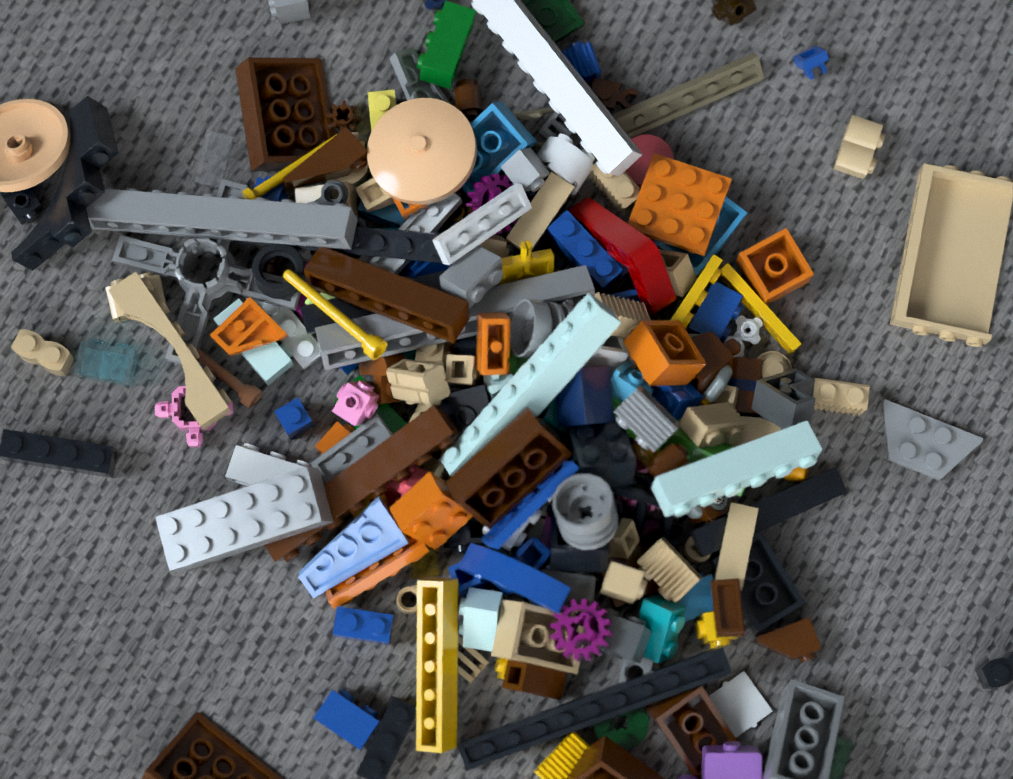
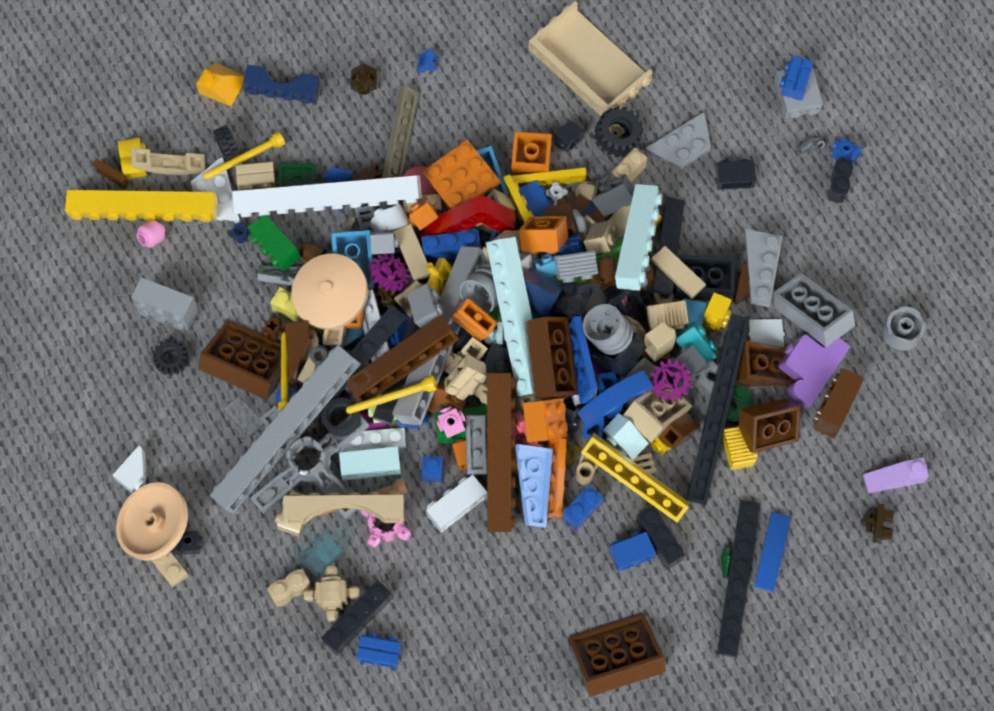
camera: 50 degrees left, 10 degrees down
(36, 504) = (378, 650): none -> blue brick
(64, 82) = (133, 471): none -> white slope
(67, 405) = (332, 593): none -> tan piece
(81, 184) = (206, 497): black arch -> none
(224, 12) = (178, 365): none -> black tyre
(244, 519) = (475, 531): brick -> none
(247, 329) = (363, 457): orange wing -> none
(482, 224) = (399, 282): white plate -> none
(599, 191) = (422, 214): none -> orange brick
(727, 608) = (711, 296): reddish brown tile -> none
(825, 640) = (762, 259): none -> light grey wing
(831, 296) = (568, 136): none -> black brick
(858, 147) = (494, 69): tan brick -> none
(882, 342) = (618, 129): none -> tan plate
(901, 343) = (624, 119): none -> black tyre
(926, 532) = (735, 174): none -> black brick

